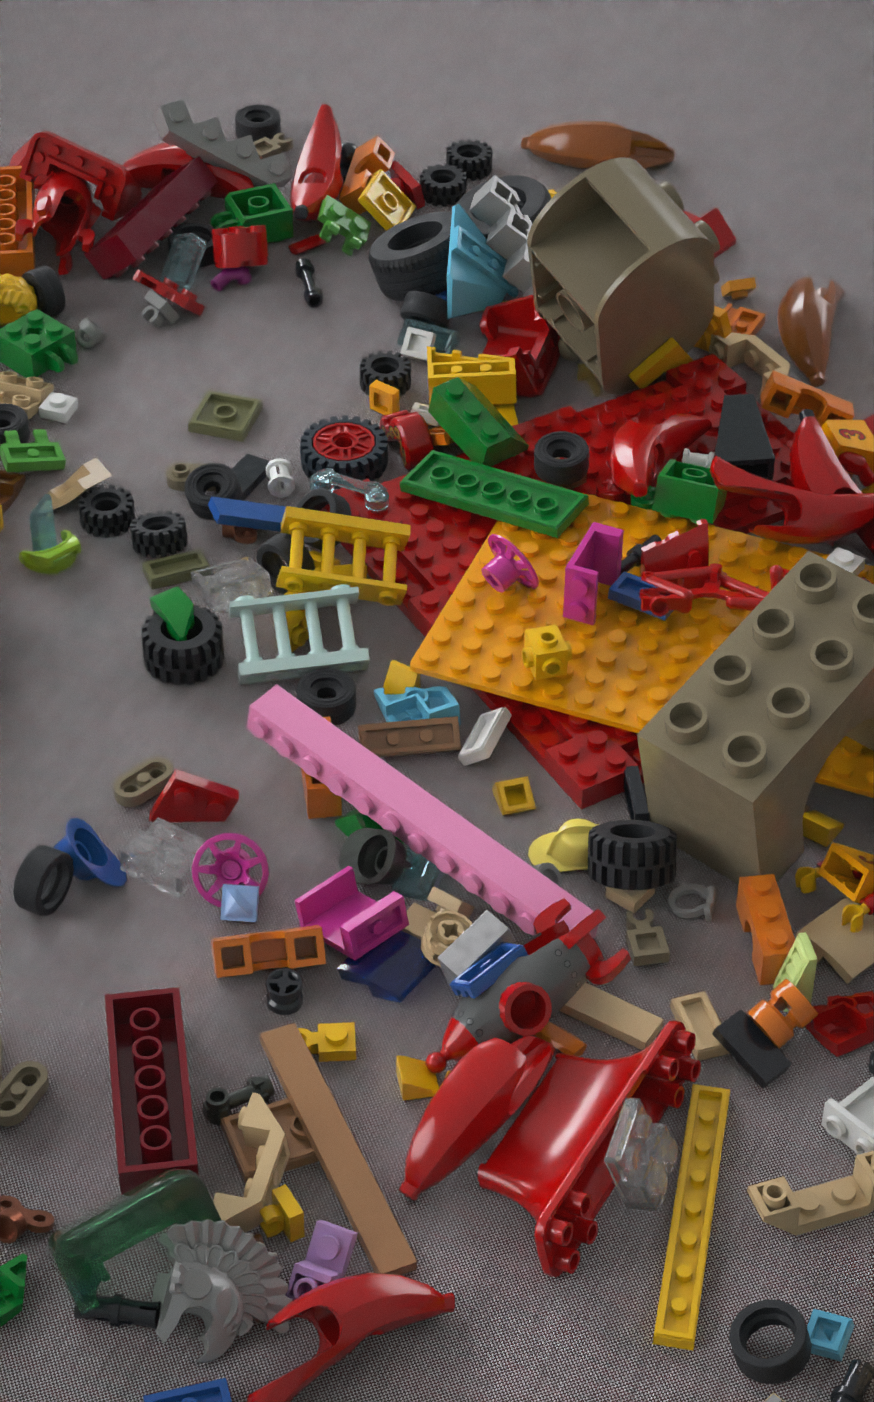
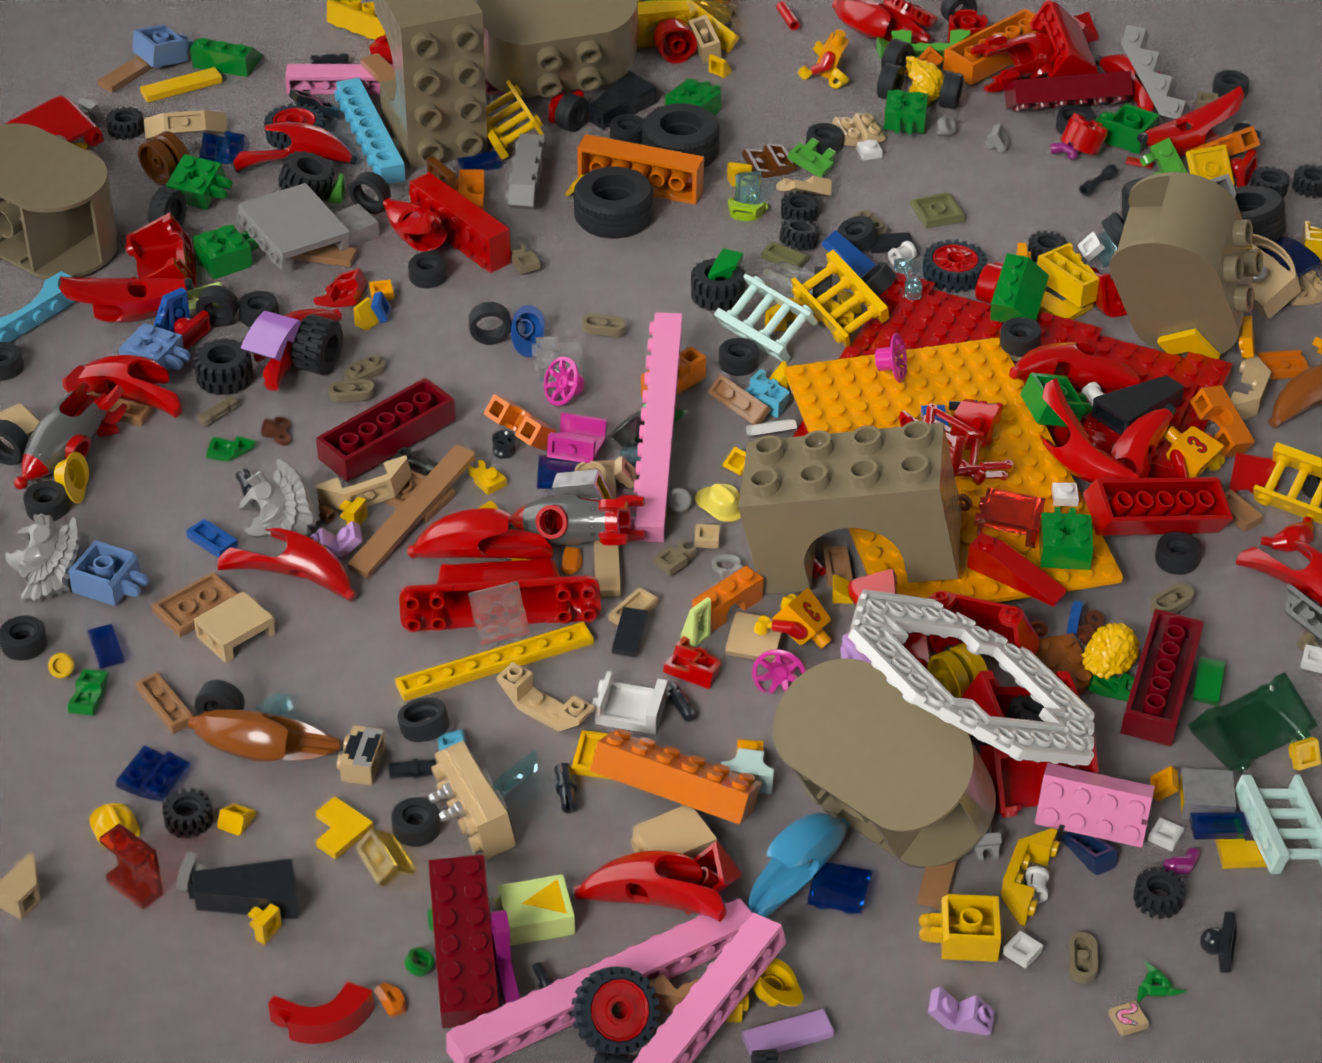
camera: 55 degrees right, 0 degrees up
(87, 1242) = (252, 446): clear green windscreen -> none
(169, 290) = (1014, 133): red wing -> none
(184, 259) = (1050, 124): clear light blue slope -> none
(194, 800) = (603, 346): red wing -> none
(239, 902) = (549, 399): light blue tile -> none
(486, 970) = (556, 492): blue tile -> none
(495, 493) = (966, 330): green tile -> none
(546, 652) = (834, 404): yellow brick -> none
(594, 561) = (918, 385): dark pink panel -> none
(632, 854) = (718, 517): black tyre -> none
(772, 1022) = (660, 628): orange wheel -> none

